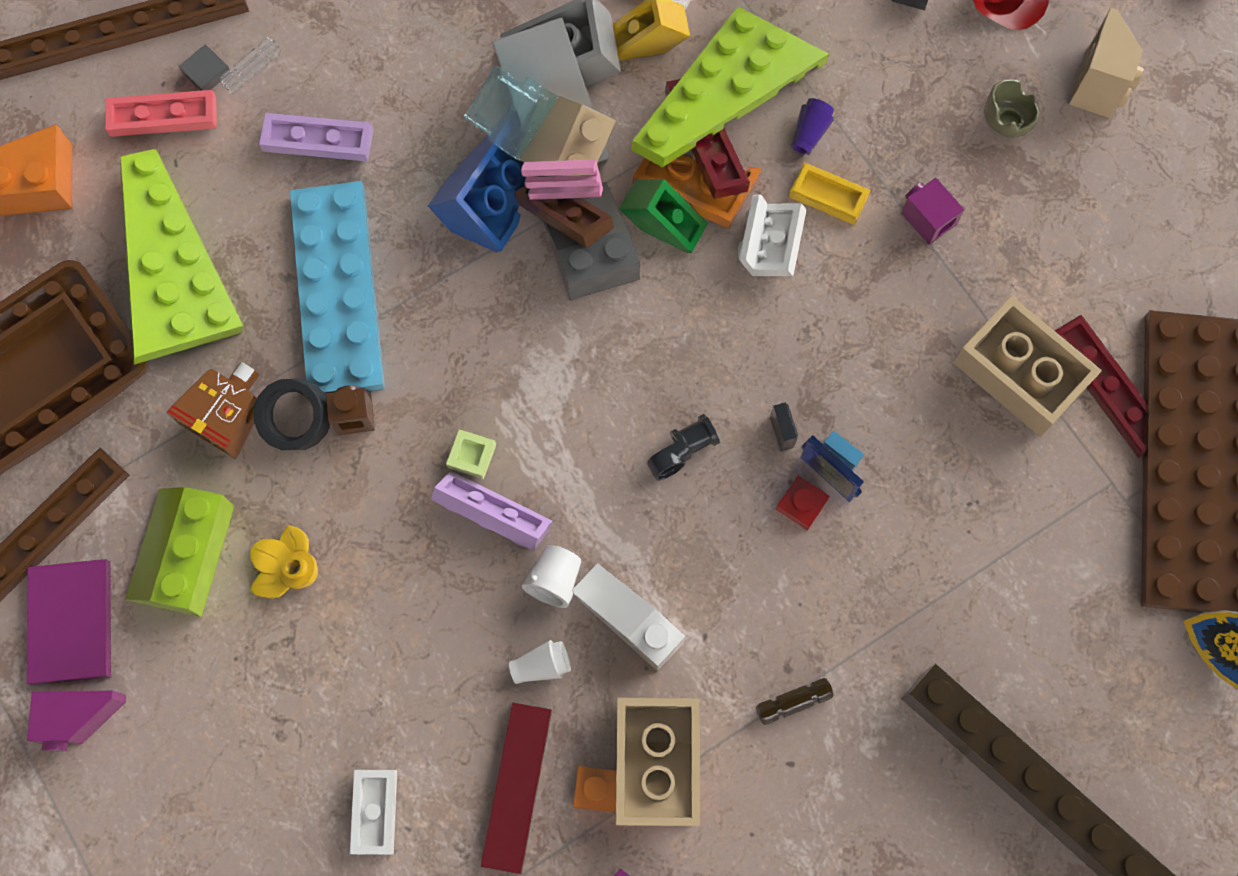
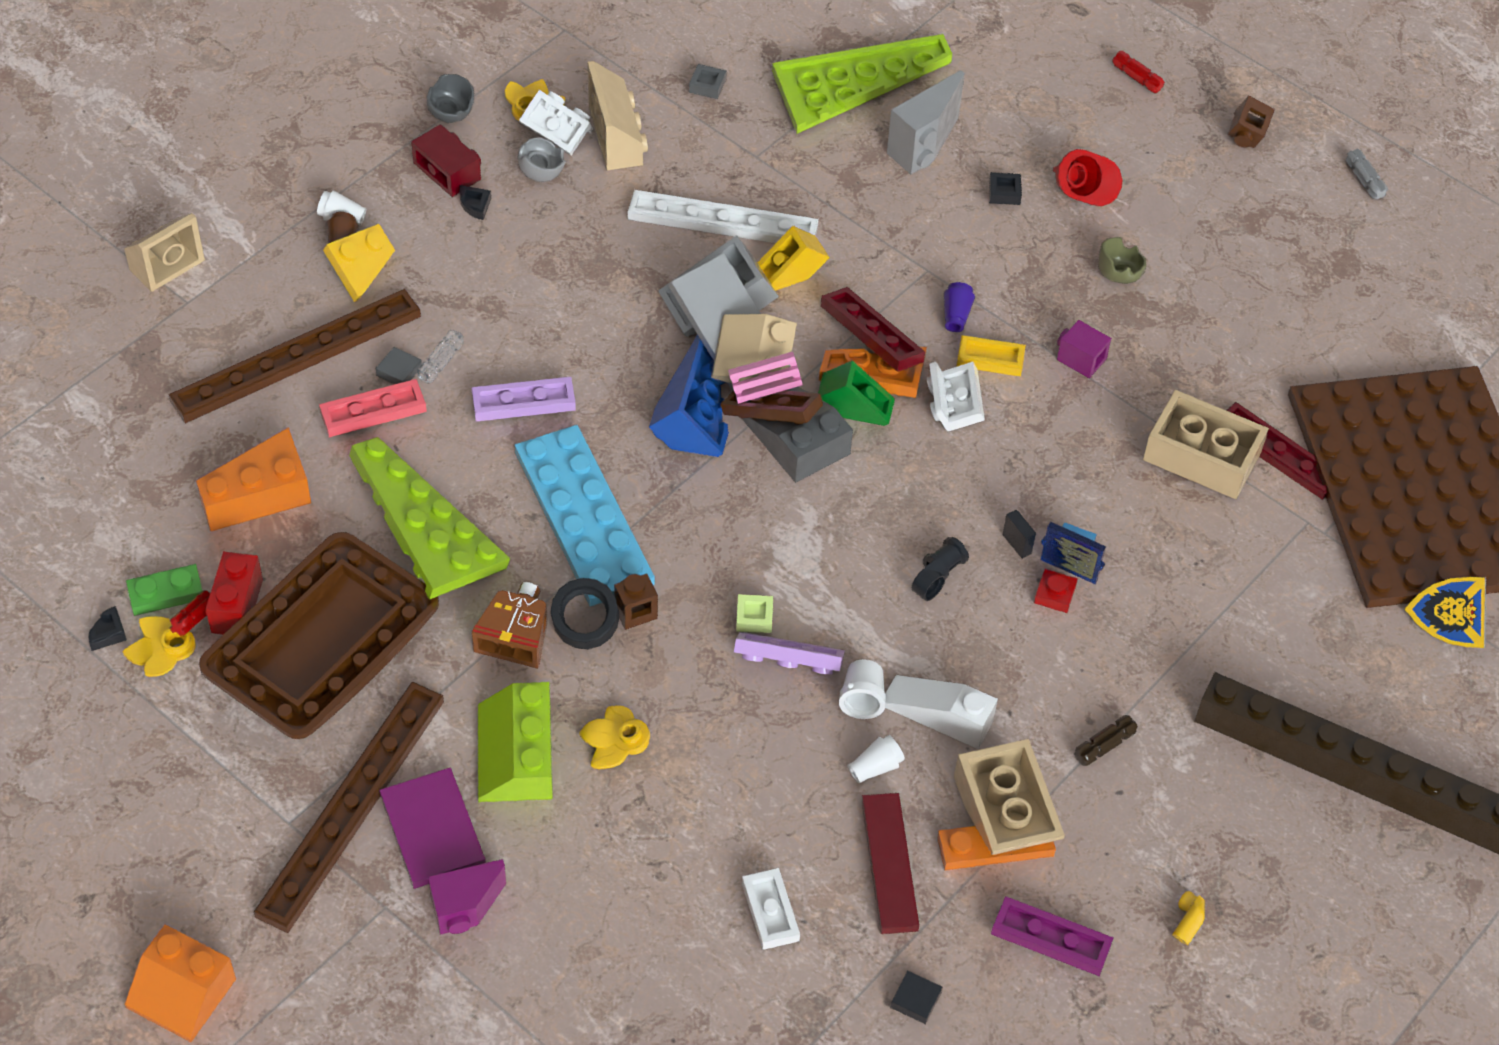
camera: 20 degrees left, 20 degrees down
(510, 110) = (703, 332): clear light blue plate -> none
(728, 79) = (875, 280): lime wing -> none
(1108, 68) = (1190, 214): tan slope -> none

